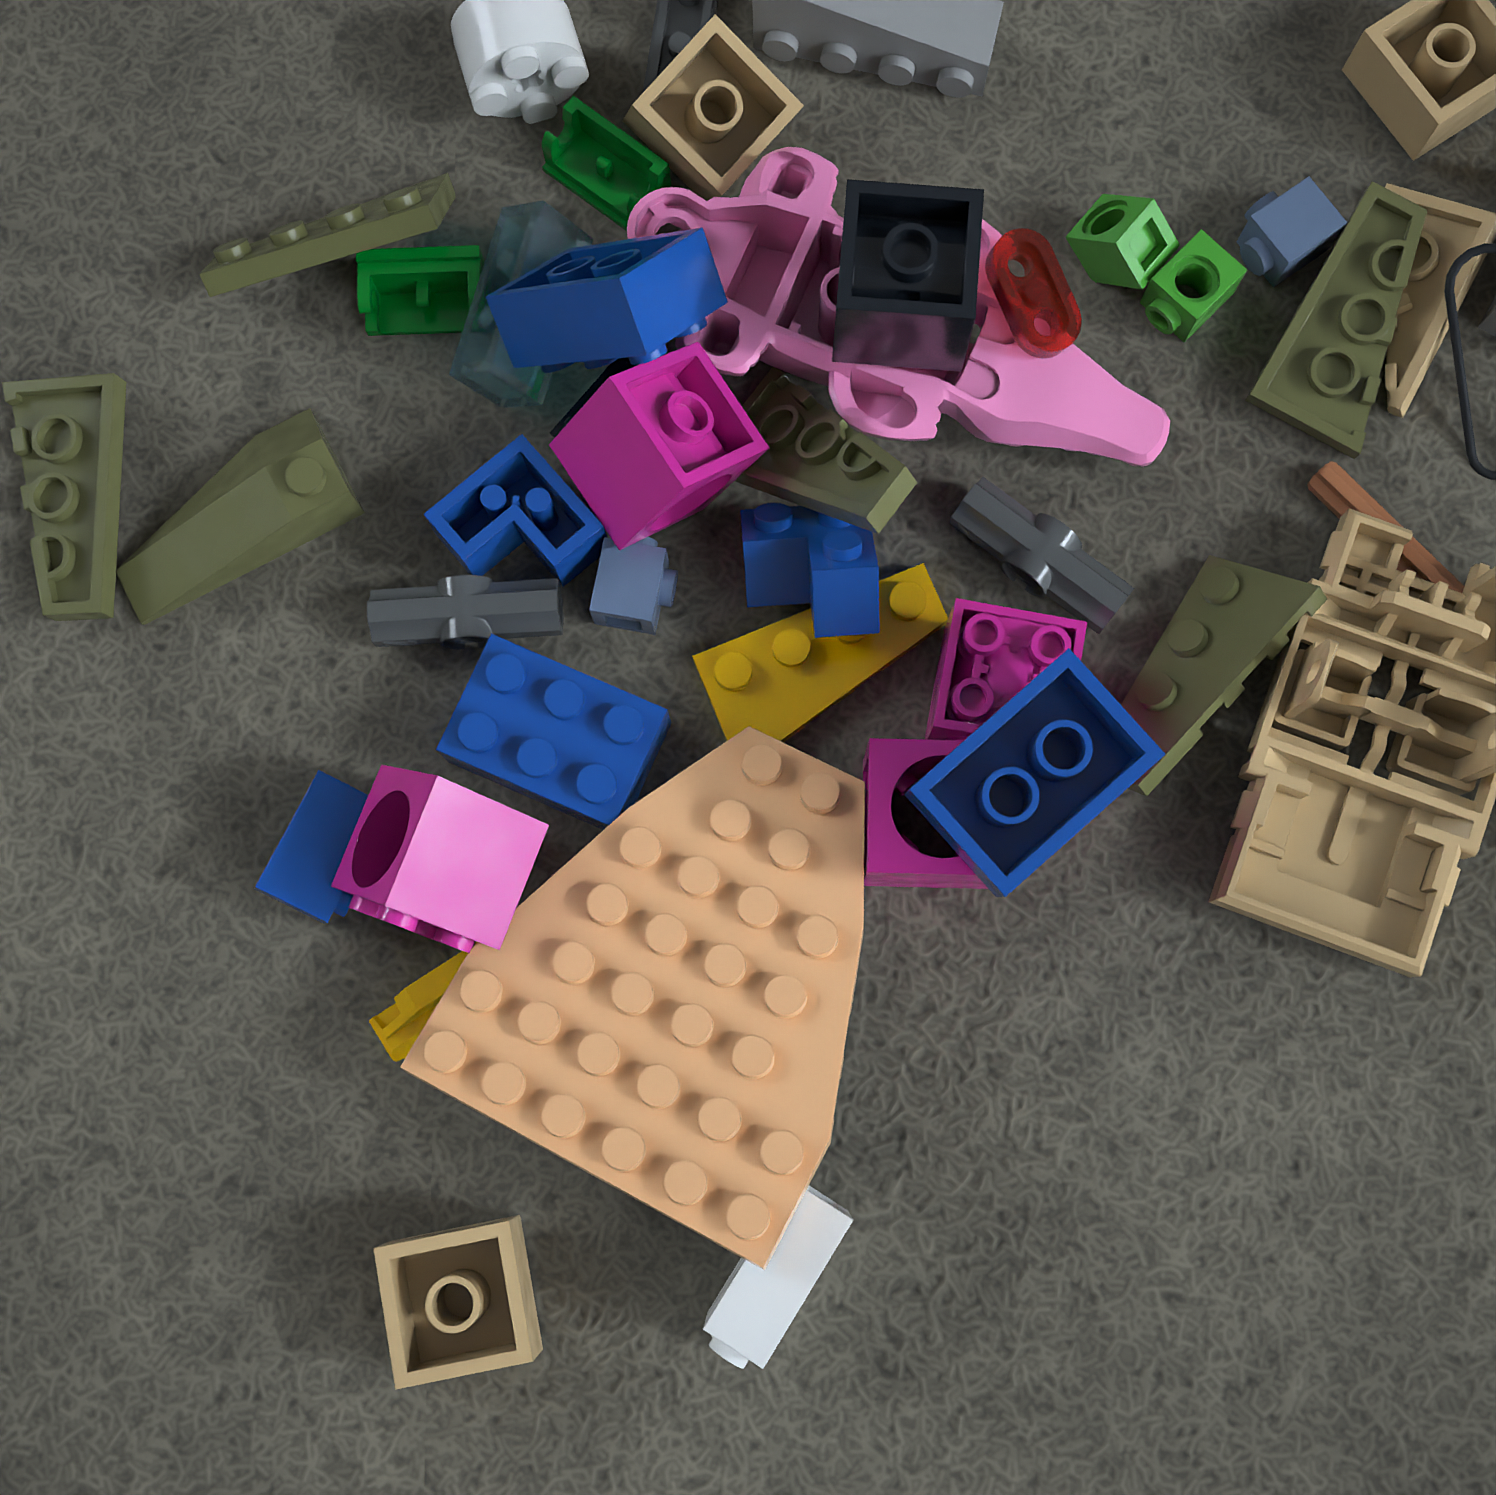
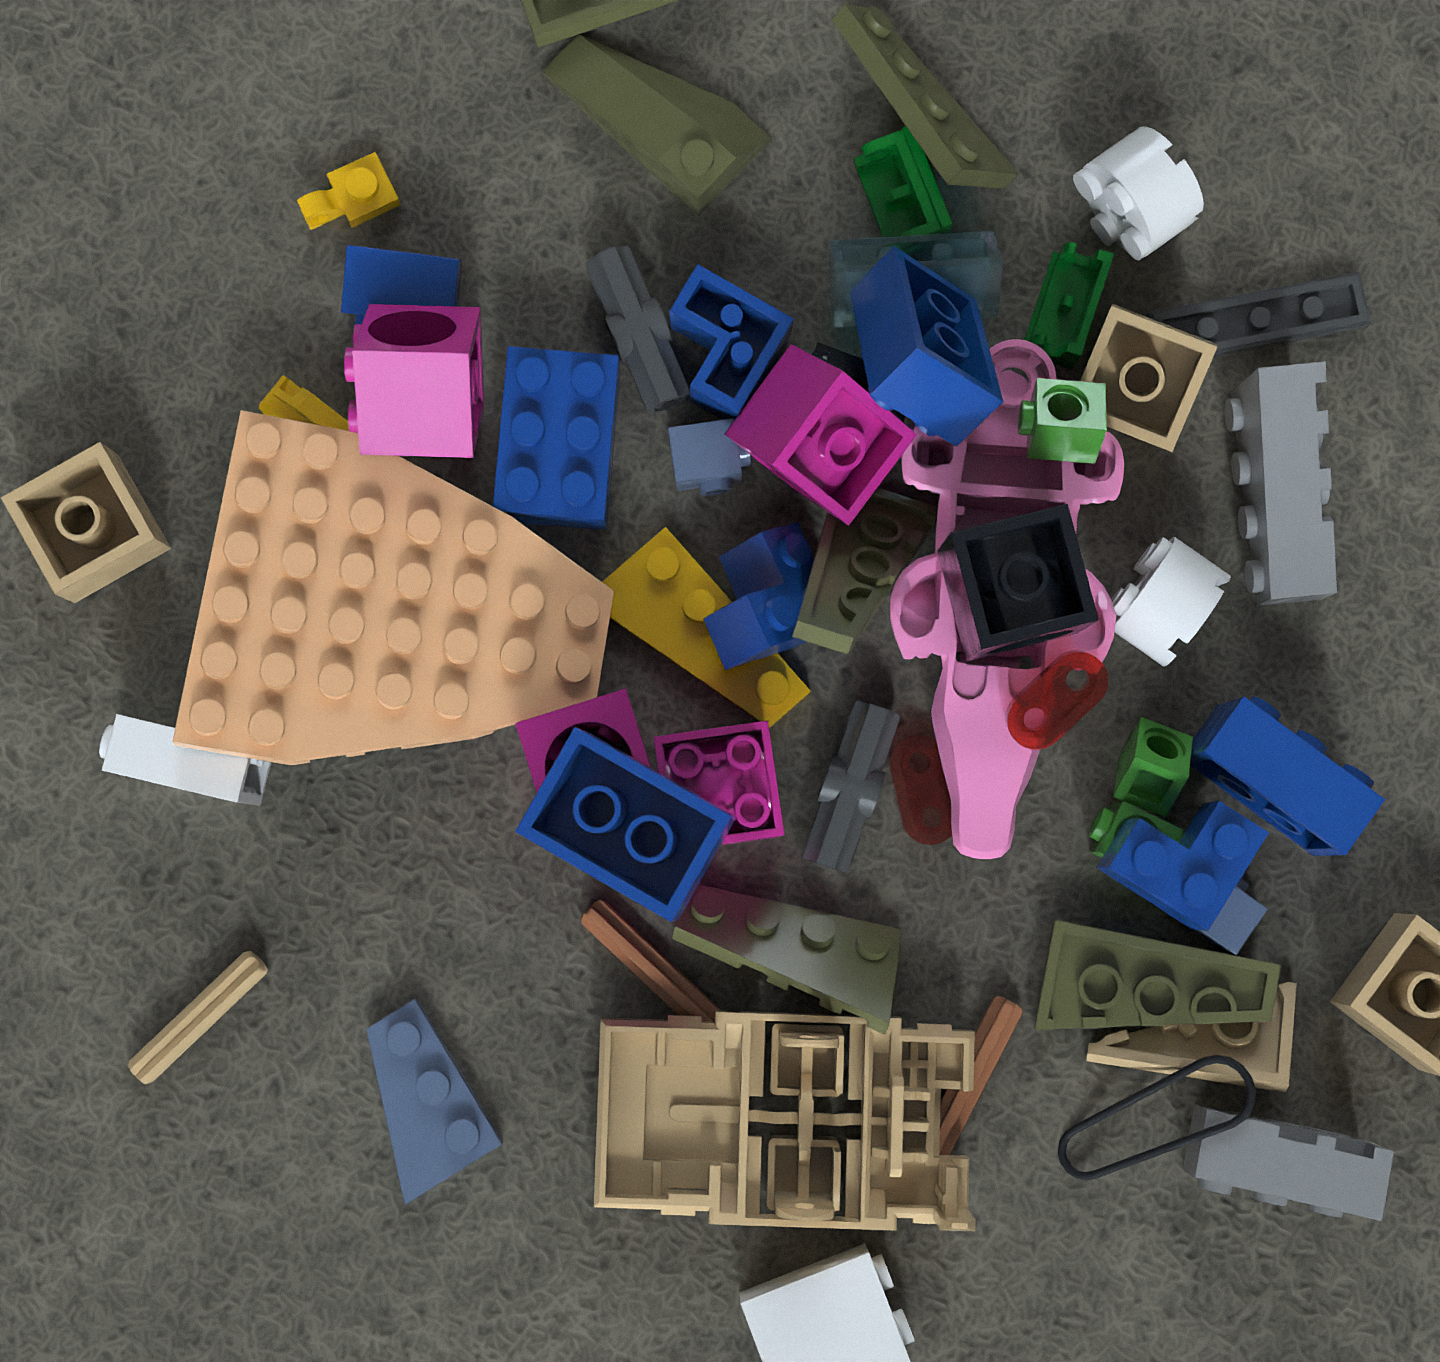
camera: 60 degrees right, 5 degrees up
(193, 867) = (358, 191): none -> yellow plate
(740, 183) = (1064, 420): none -> bright green brick
(957, 147) = (1168, 599): none -> white brick
(1068, 484) = (920, 790): none -> clear red plate
(1068, 1362) = (197, 1017): none -> tan axle
(1160, 835) = (647, 962): none -> nougat axle
(1179, 111) = (1284, 776): none -> blue brick
(1242, 1128) = (426, 1102): none -> sand blue wing
(1254, 227) = (1186, 876): none -> blue brick

